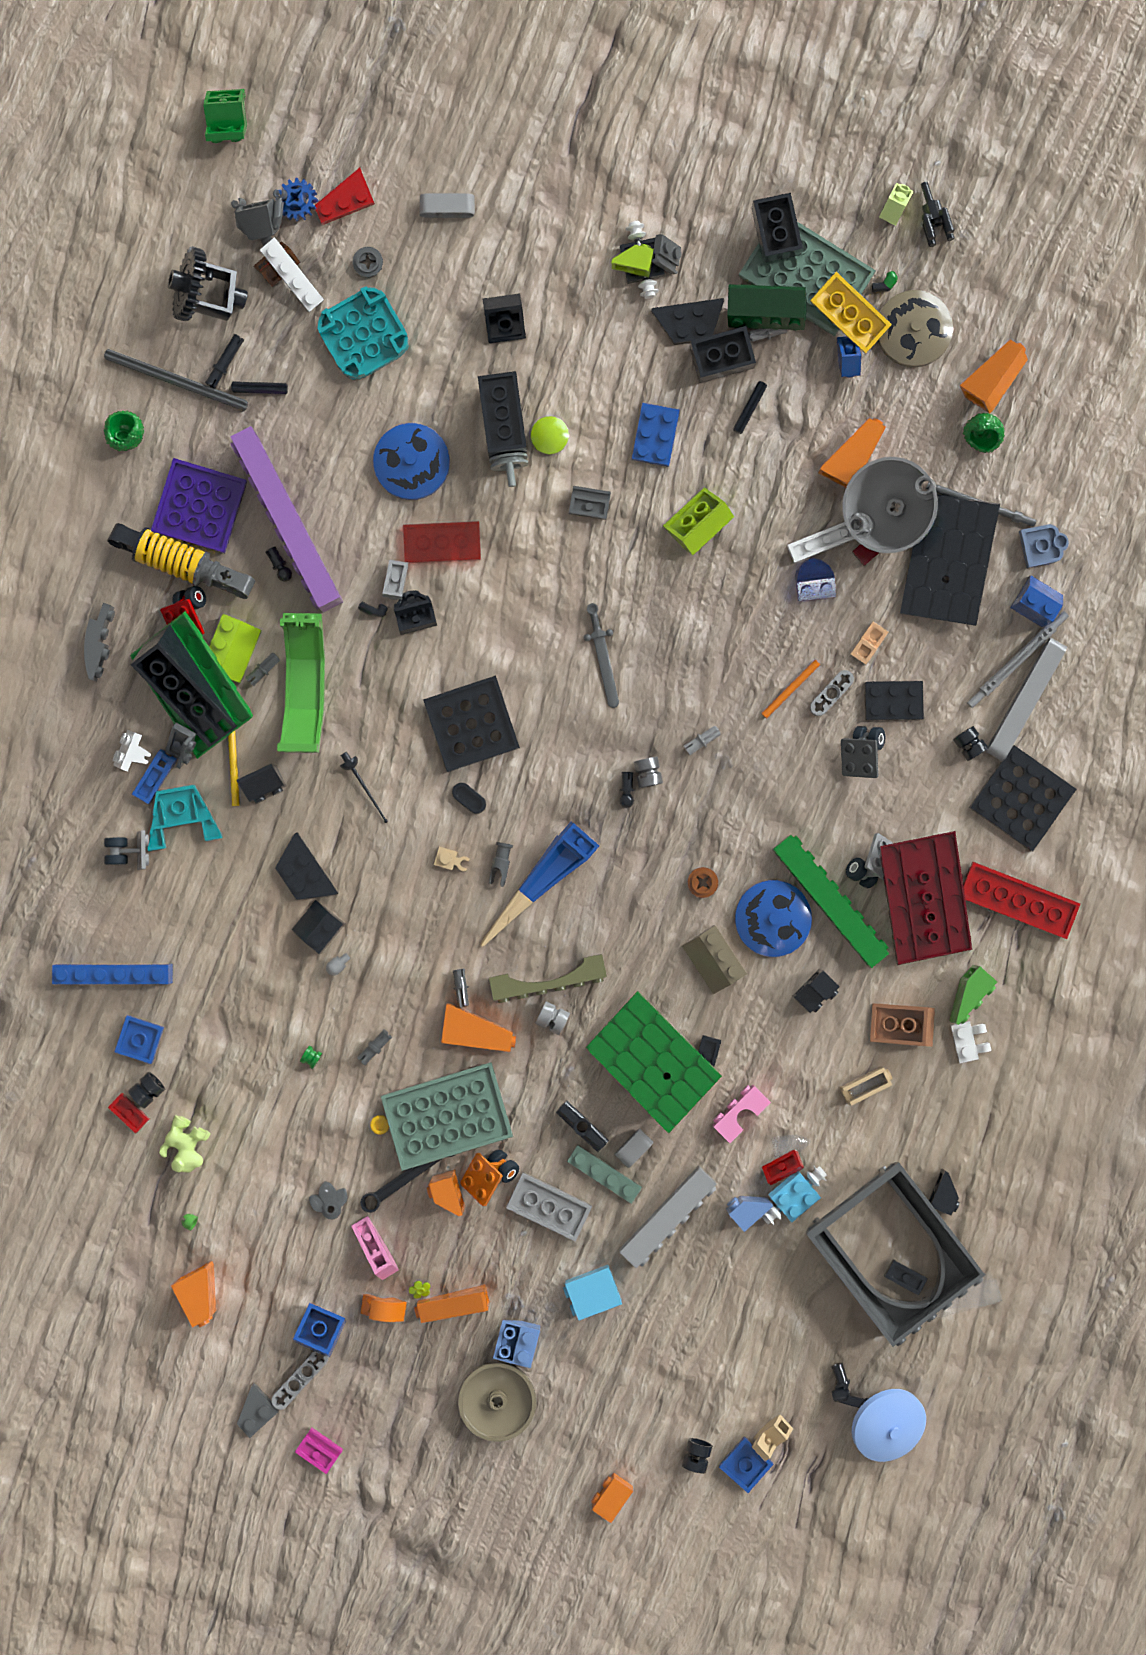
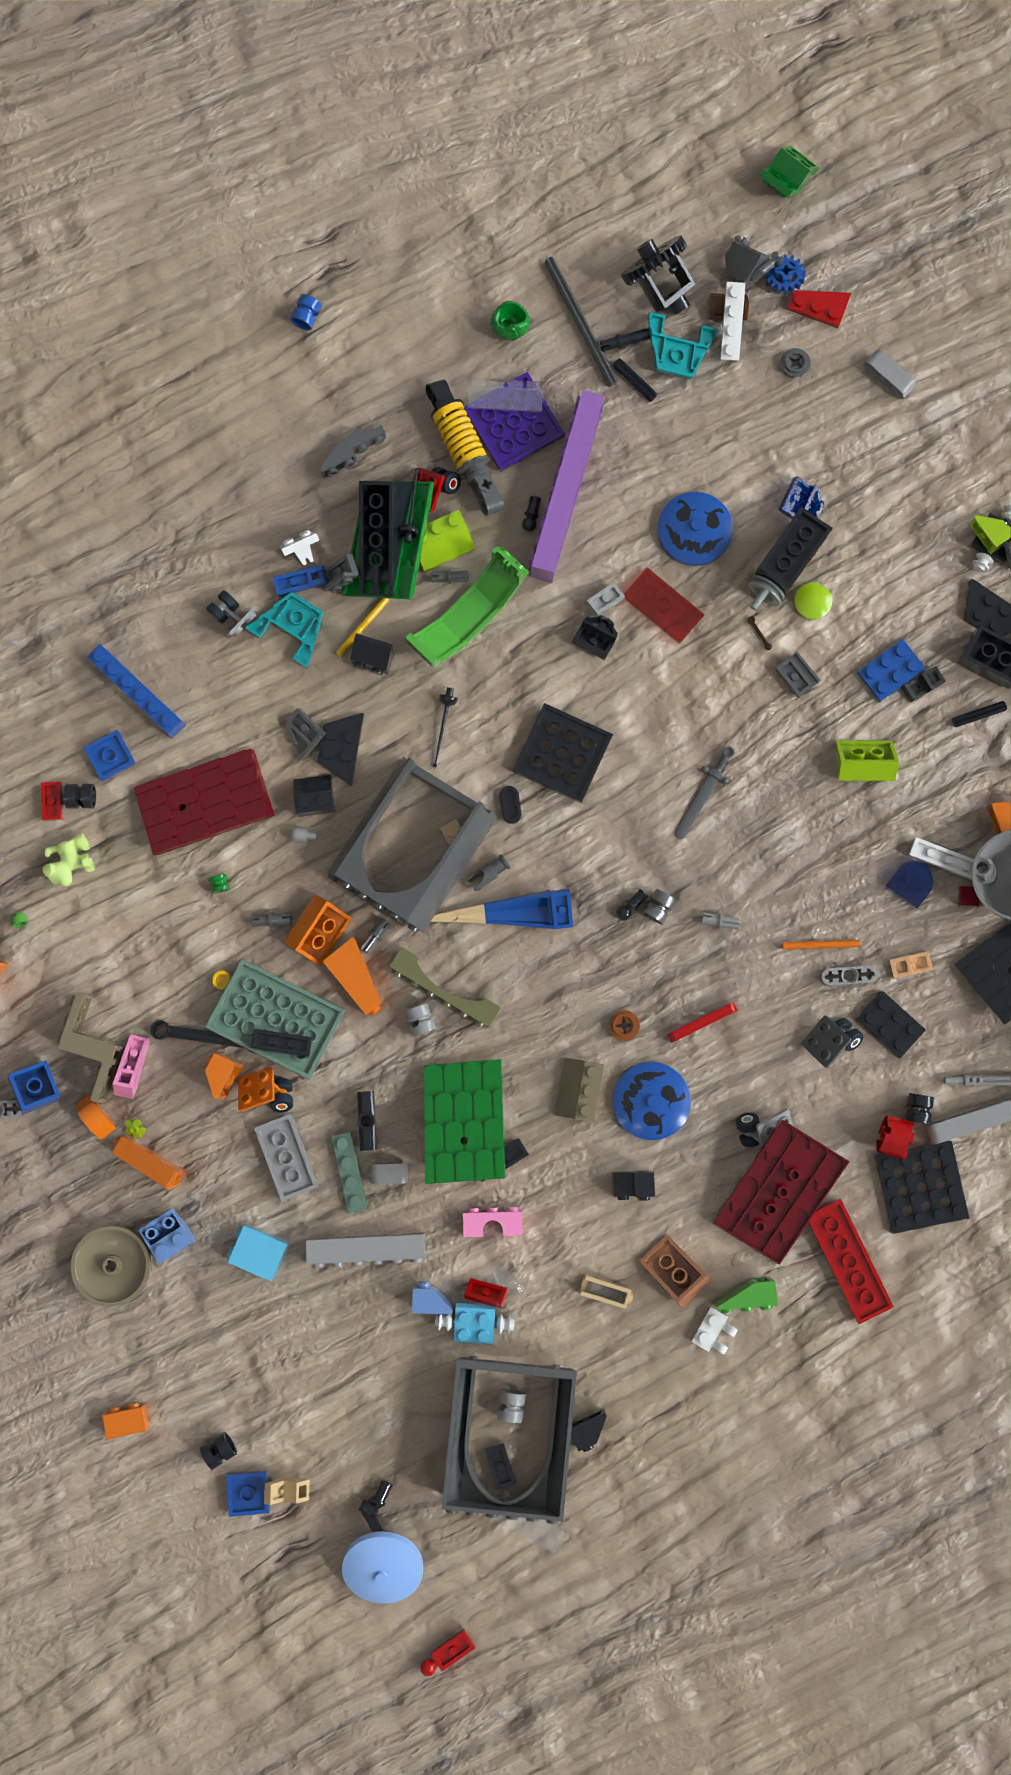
camera: 45 degrees right, 5 degrees down
(172, 497) = (505, 398): none -> clear windscreen
(202, 666) = (408, 530): none -> black sword
(242, 1008) = (203, 801): none -> dark red piece
(266, 887) = (304, 733): none -> dark grey wing
(274, 339) = (674, 354): none -> teal wing
(329, 1197) = (133, 997): dark grey plate -> none
(332, 1263) = (90, 1047): none -> dark tan bracket
(363, 333) = (745, 408): teal plate -> none
(372, 611) = (566, 606): black arm -> none
(415, 1023) = (317, 930): none -> orange slope
(468, 1129) = (281, 1043): none -> black tile
(469, 364) = (801, 495): none -> clear blue slope
(473, 933) = (421, 902): none -> dark grey panel
(504, 318) = (857, 489): black slope -> none
(517, 492) = (751, 620): none -> dark brown hinge
(688, 423) = (923, 684): none -> pearl dark grey slope
(757, 827) = (702, 1022): none -> red beam
(830, 901) = (706, 1128): green brick -> none
(874, 1228) = (511, 1406): none -> light grey wheel
(971, 781) = (895, 1137): none -> red brick
(989, 1439) = (448, 1653): none -> red plate

